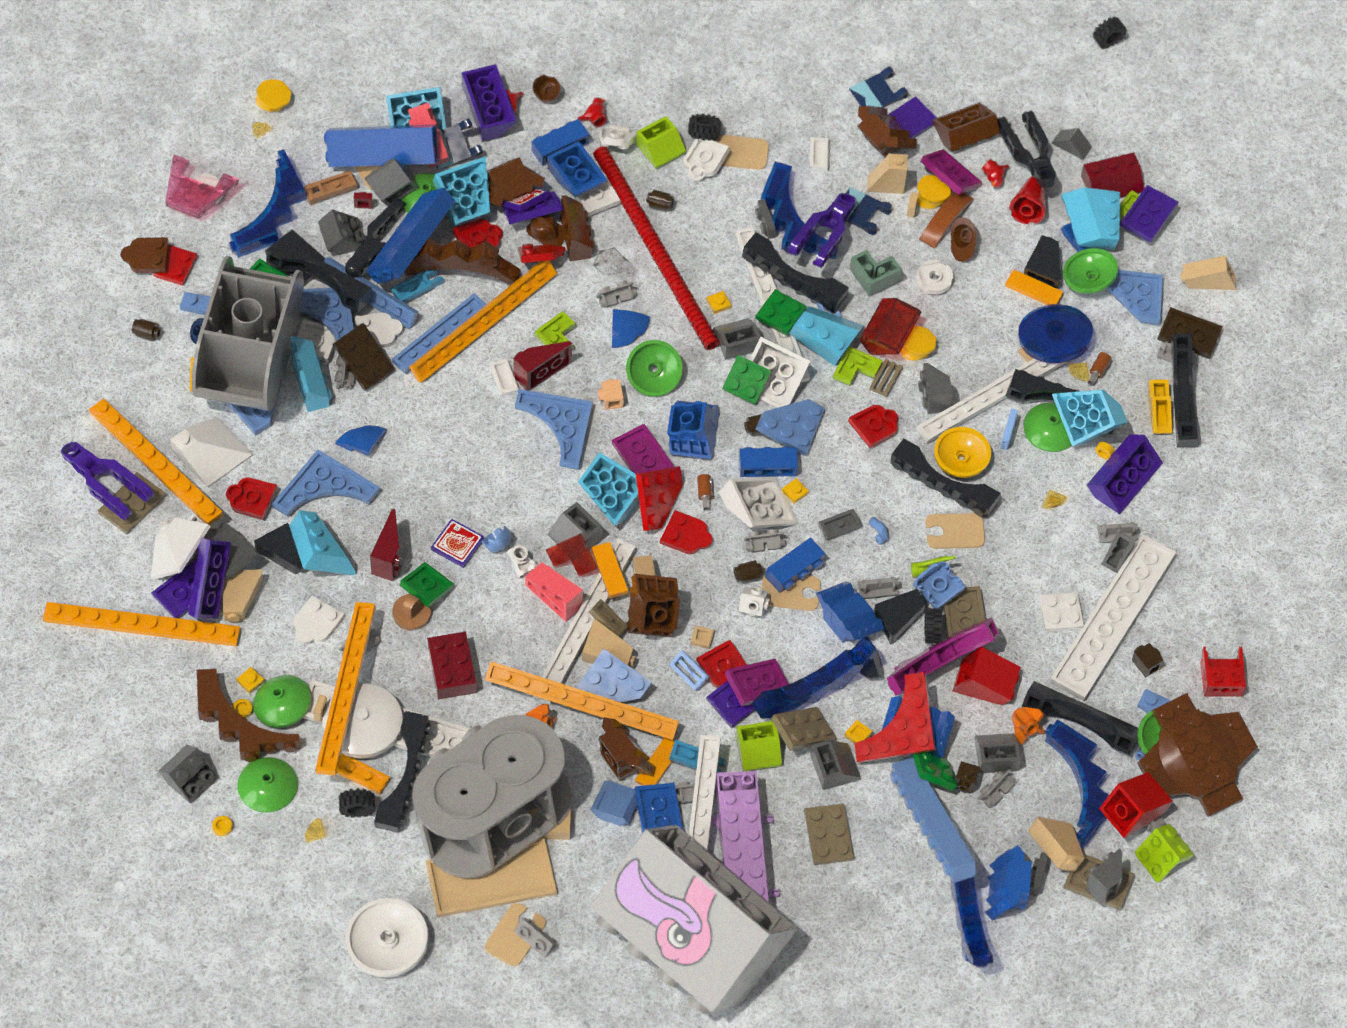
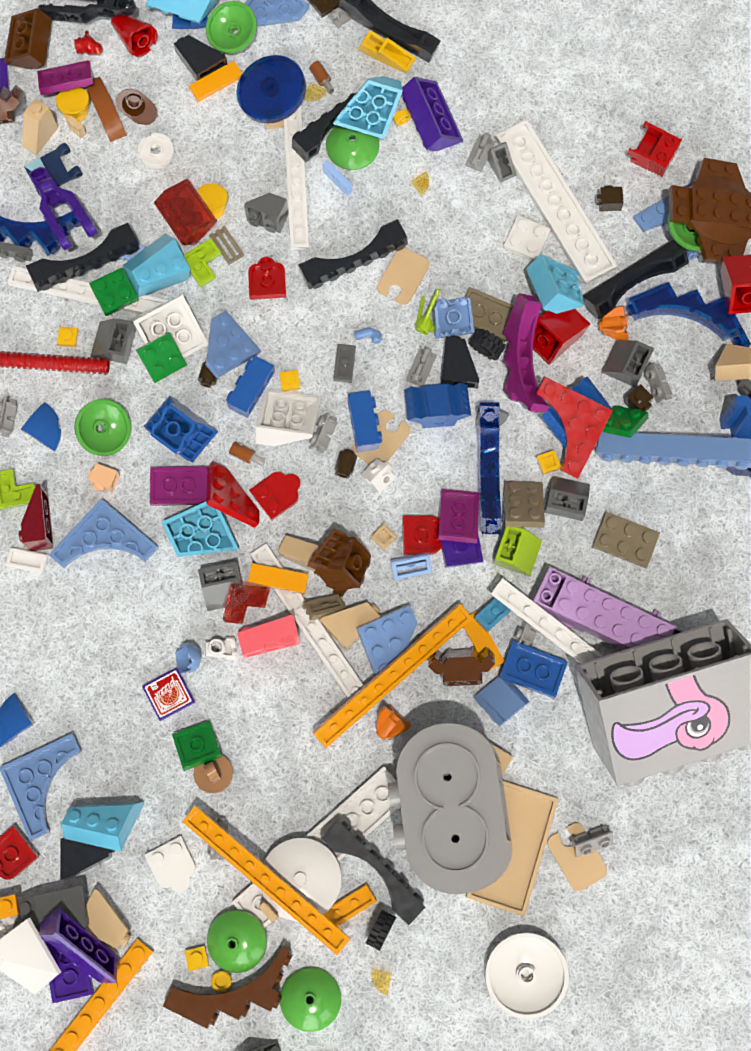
camera: 55 degrees left, 15 degrees up
(385, 555) = (146, 763): dark red slope -> none
(451, 665) = (290, 768): dark red brick -> none
(874, 275) = (125, 197): sand green brick -> none
(962, 443) = (336, 216): yellow dish -> none
(1026, 649) = (555, 284): none -> medium azure wedge

